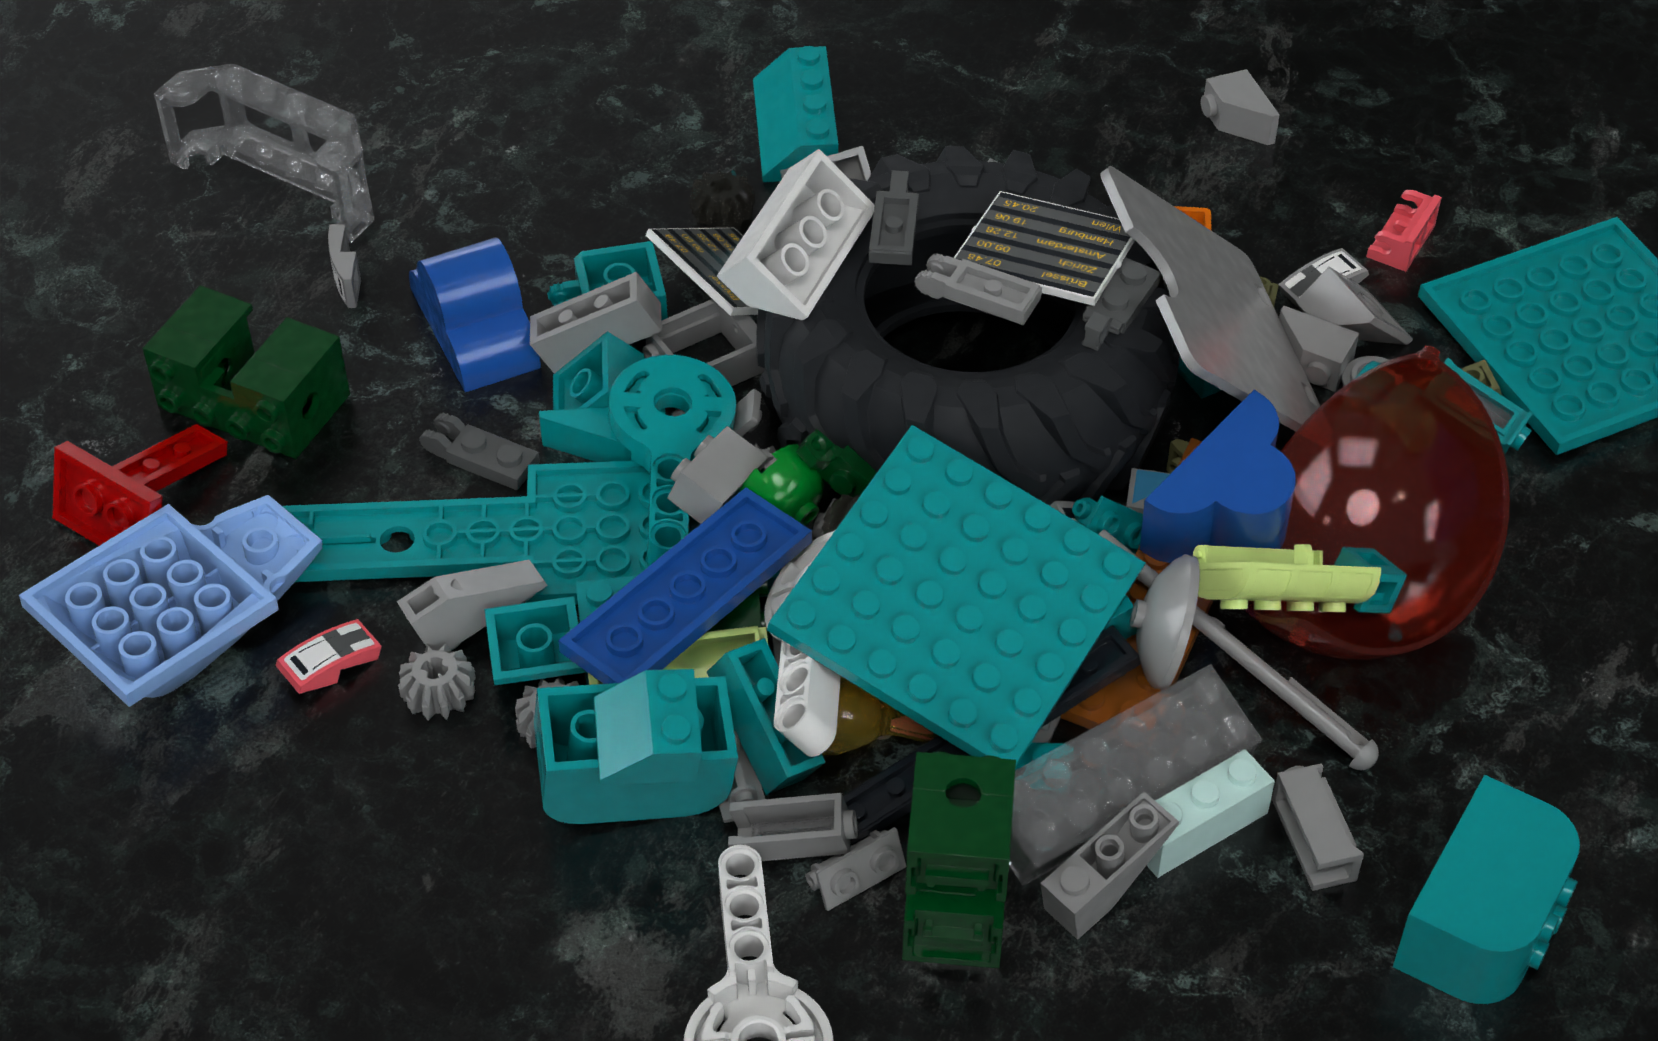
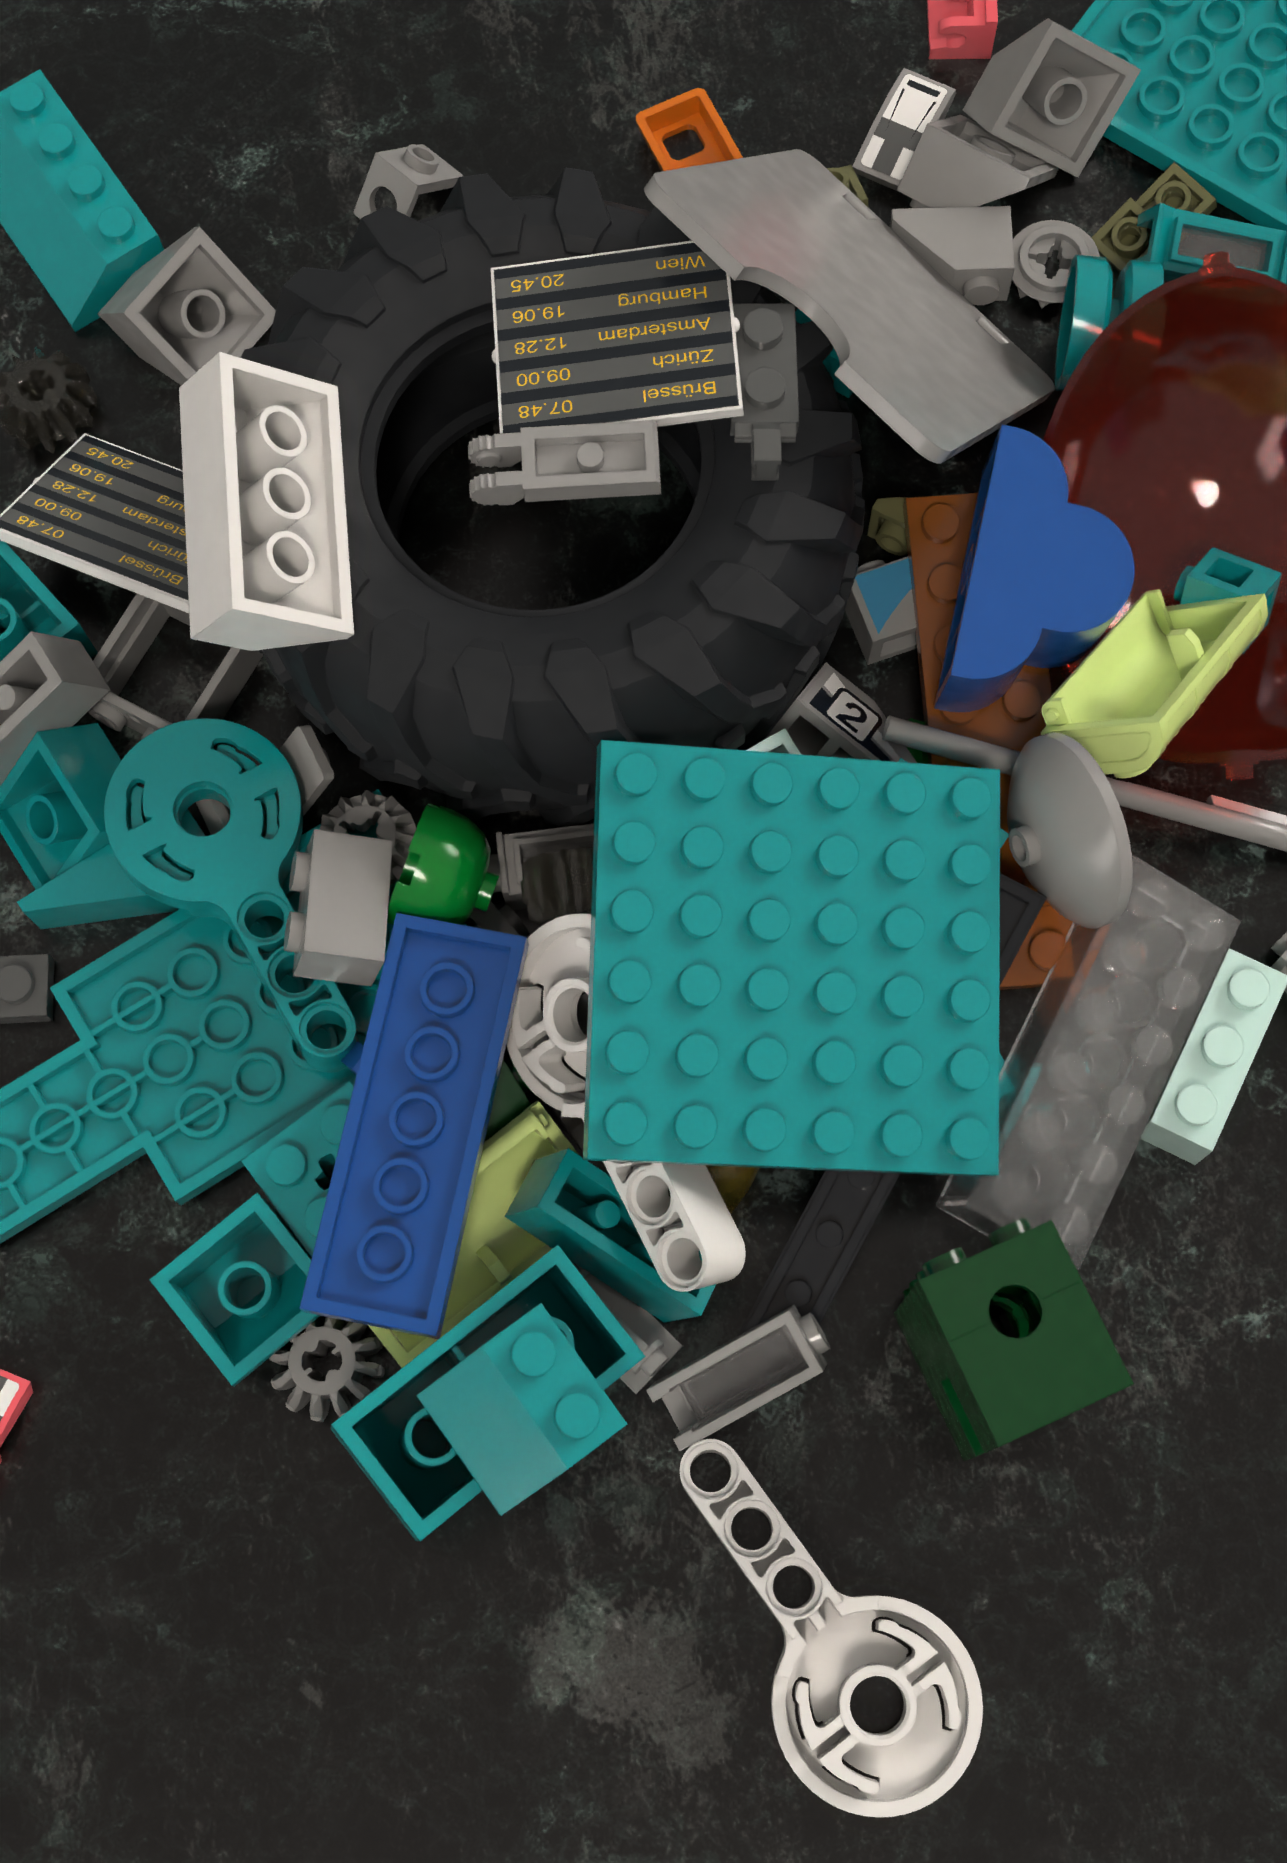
camera: 25 degrees left, 25 degrees up
(437, 681) = (135, 1427): light grey gear -> none
(453, 604) = (107, 1267): light grey slope -> none
(837, 466) = (517, 817): dark green hinge -> none
(858, 870) = (833, 1398): light grey hinge -> none
(894, 223) = (383, 406): dark grey hinge -> none
(1106, 865) = (1157, 1206): light grey slope -> none
(1115, 518) = (877, 687): teal hinge -> none
(1424, 290) = (1052, 94): none -> light grey slope

